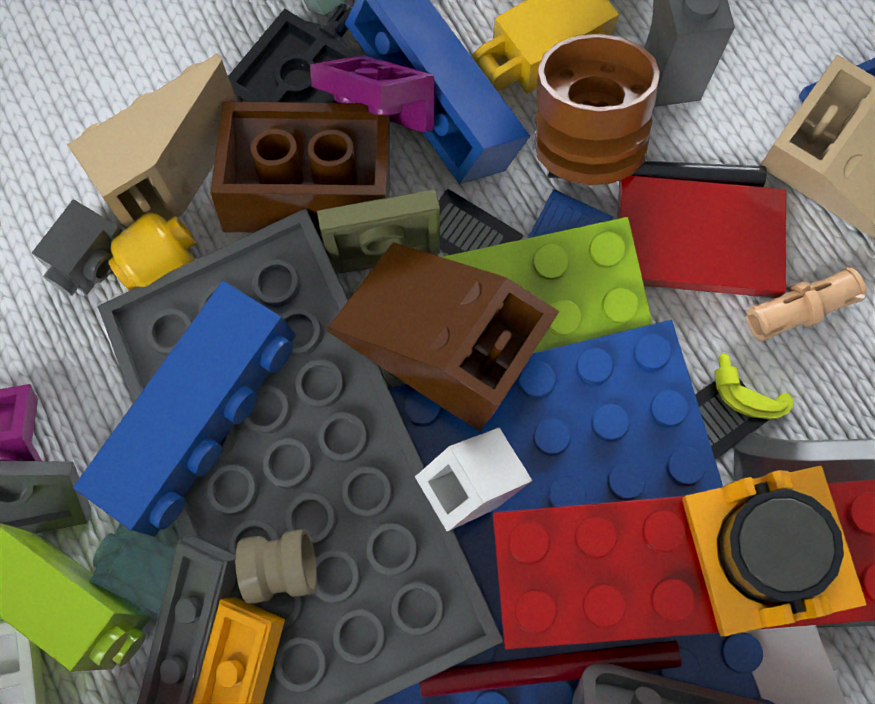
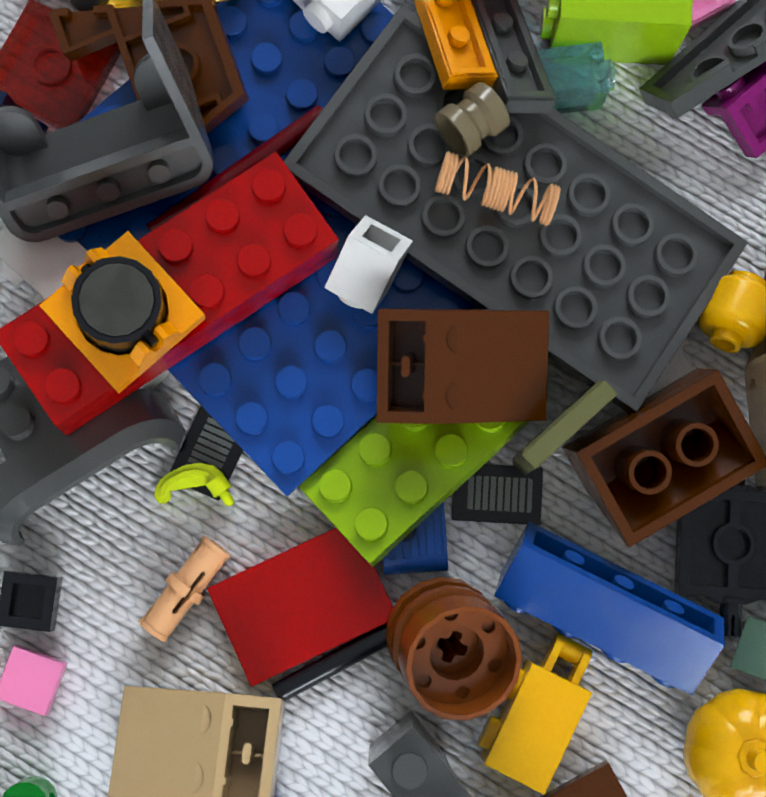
camera: 150 degrees right, 10 degrees up
(187, 411) = (612, 194): blue brick -> none
(297, 478) = (499, 187): none -> light nougat piece
(381, 86) = (650, 552): magenta bracket -> none

